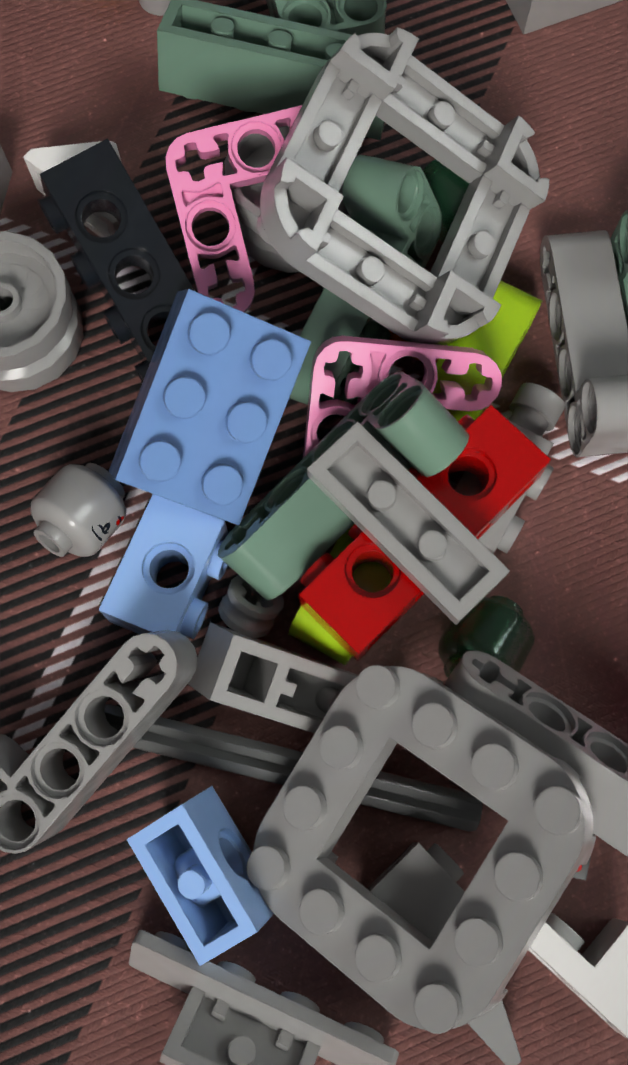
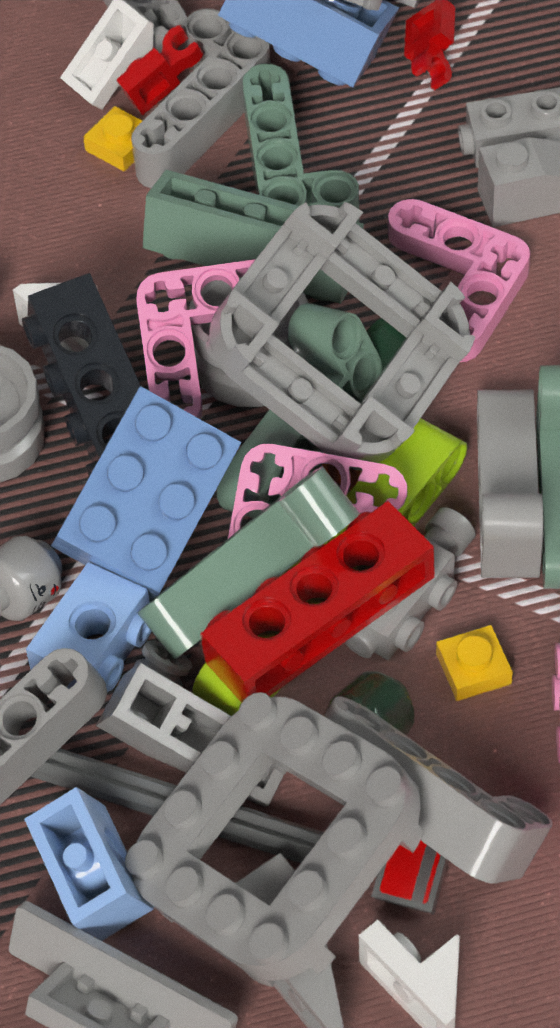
camera: 10 degrees right, 20 degrees down
(407, 523) = (298, 578): light grey plate -> none
(516, 77) = (476, 262): none -> bright pink beam
(582, 559) = (474, 663): none -> yellow plate

